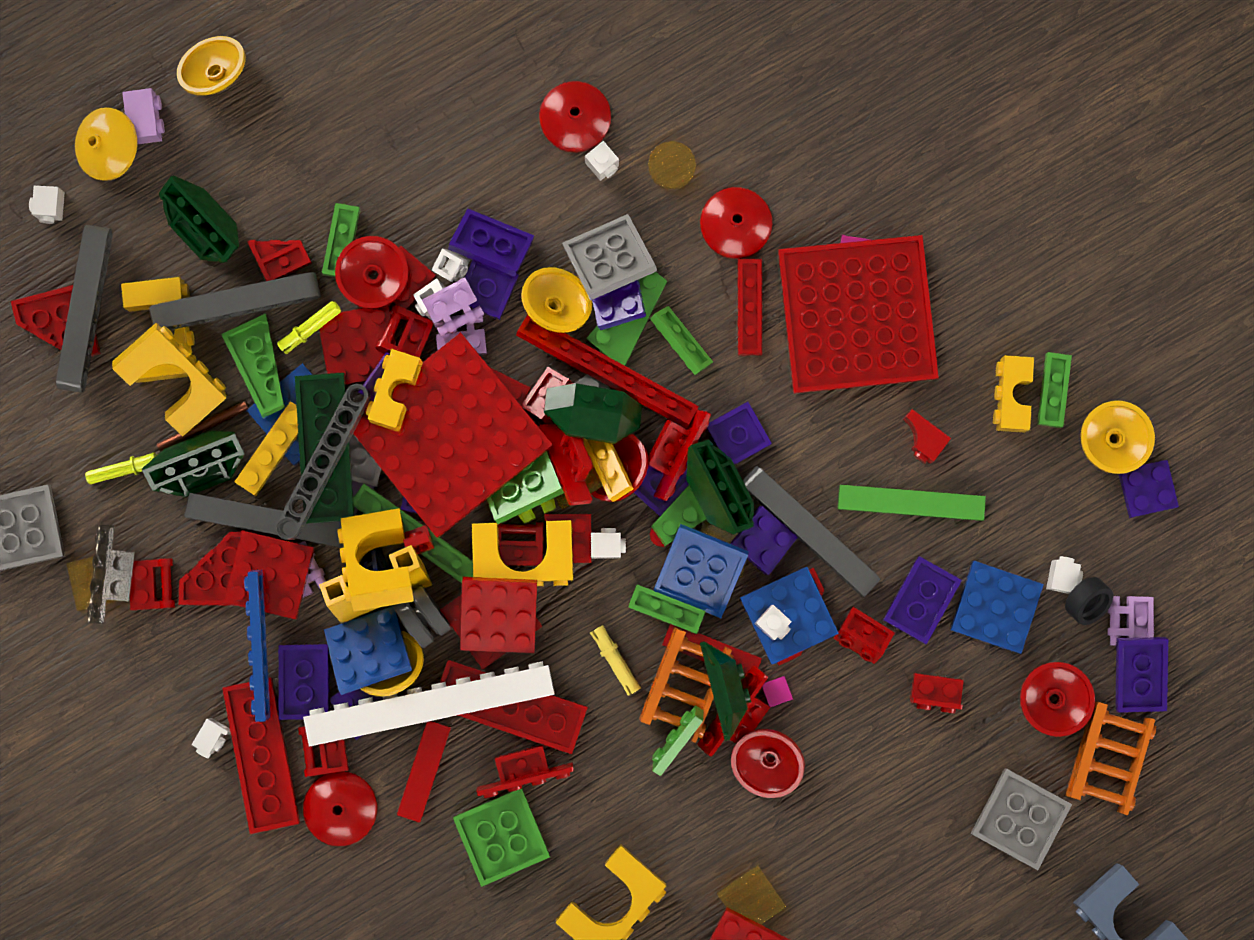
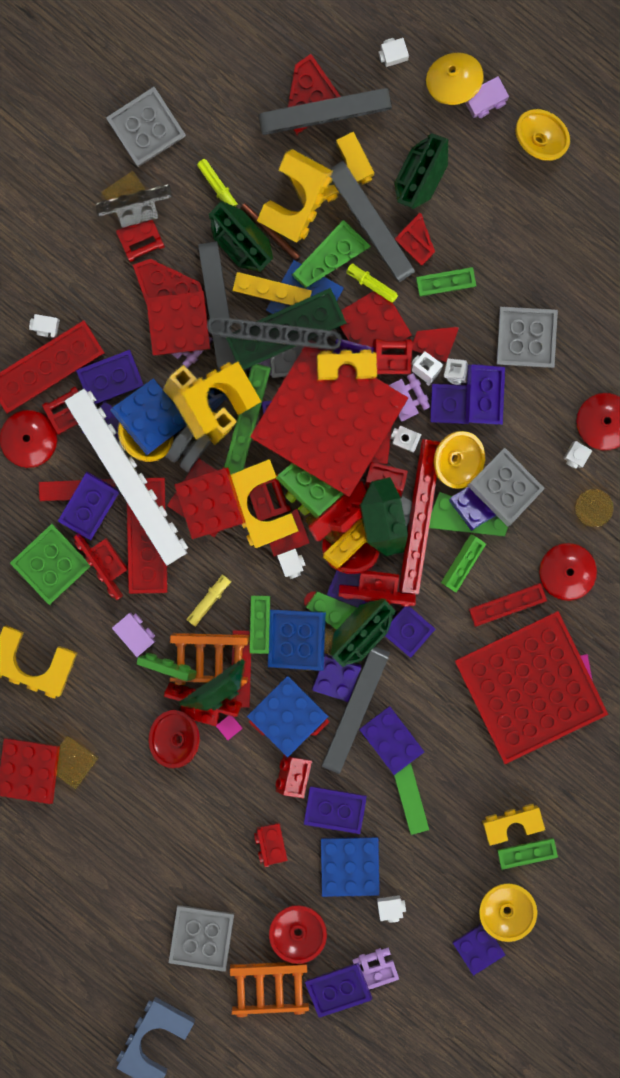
camera: 75 degrees right, 5 degrees up
(257, 635) = (130, 332): blue plate -> none
(368, 256) = (434, 301): red dish -> none
(419, 539) = (244, 424): red bracket -> none
(442, 170) = (527, 337): none -> light grey plate
(447, 764) = (88, 505): none -> dark purple plate
(449, 301) = (429, 381): lavender plate -> none
(518, 352) = (413, 440): none -> white brick
(623, 765) = (134, 634): none -> lavender brick
(773, 623) = (276, 707): white brick -> none
(862, 501) = (391, 740): none -> dark purple plate
(928, 439) = (455, 773): red arch -> none
(1089, 601) = (378, 933): black tyre -> none

